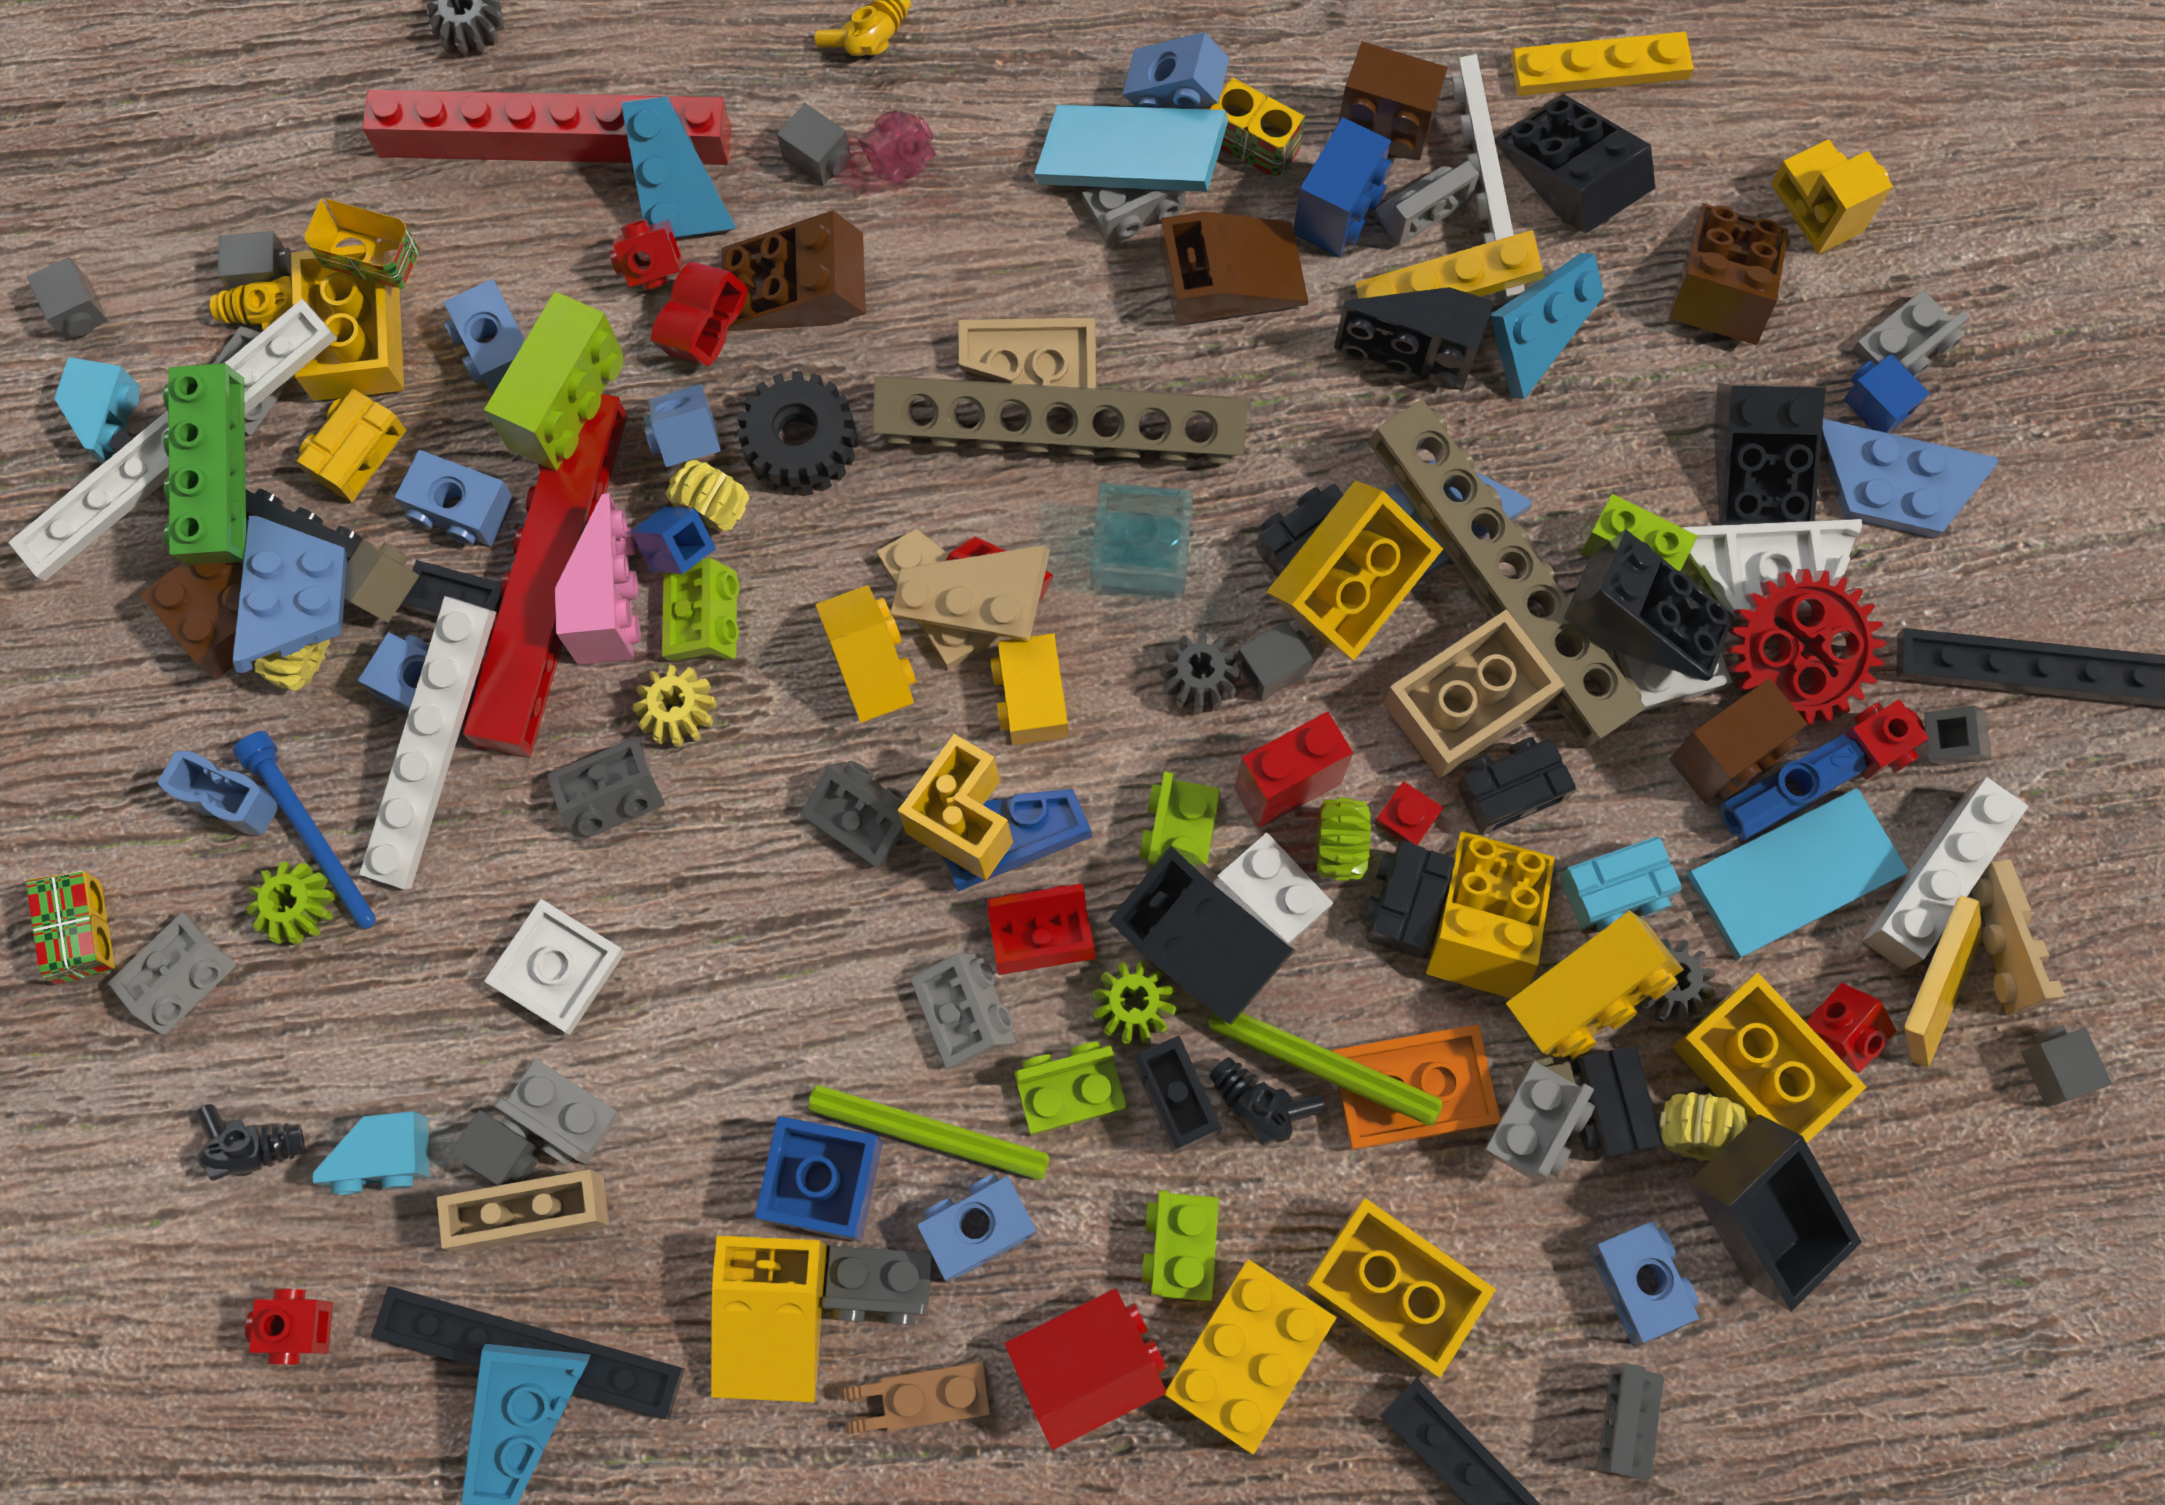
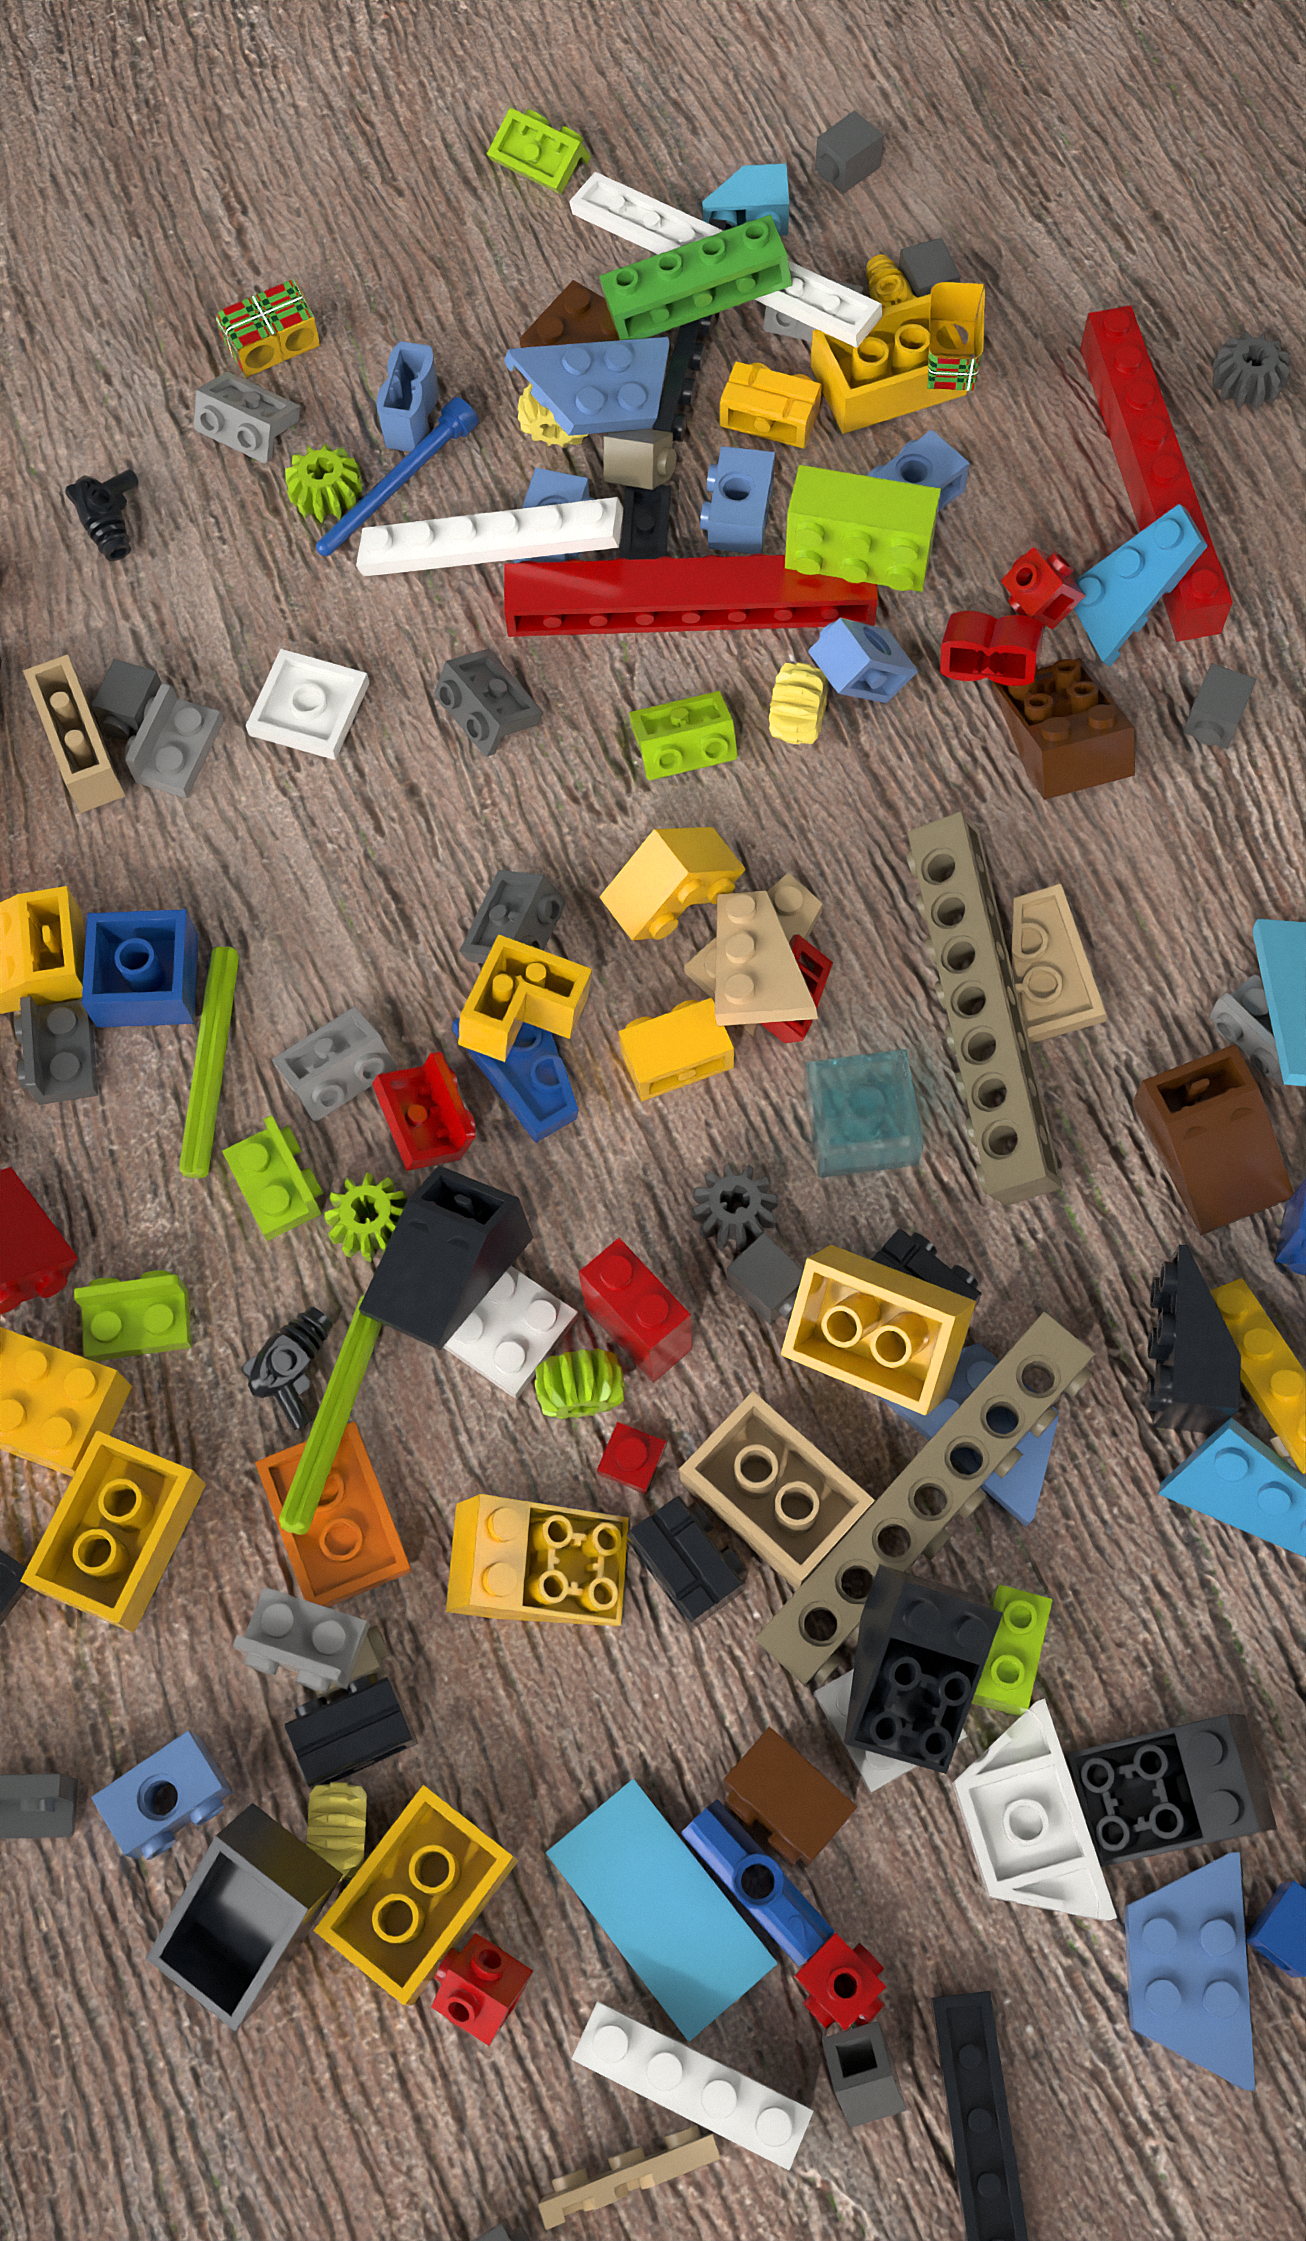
camera: 80 degrees right, 5 degrees down
(376, 1151) = (114, 613): medium azure slope -> none
(597, 590) = (678, 634): bright pink slope -> none
(673, 540) = (743, 685): blue brick -> none
(678, 720) = (580, 735): light yellow gear -> none
(800, 464) = (892, 800): black tyre -> none
(898, 146) = (1242, 780): clear pink brick -> none
(959, 1254) = (104, 1098): medium blue brick -> none
(1176, 1095) = (276, 1273): black brick -> none
(1182, 819) = (566, 1223): lime bracket -> none
(1409, 898) = (534, 1467): black brick -> none
(1596, 987) = (457, 1673): yellow brick -> none
(1620, 882) = (599, 1699): medium azure brick -> none
(1689, 990) = (501, 1794): dark grey gear -> none
(1831, 614) = (976, 1895): red gear -> none
(1943, 981) = (553, 2091): yellow tile -> none

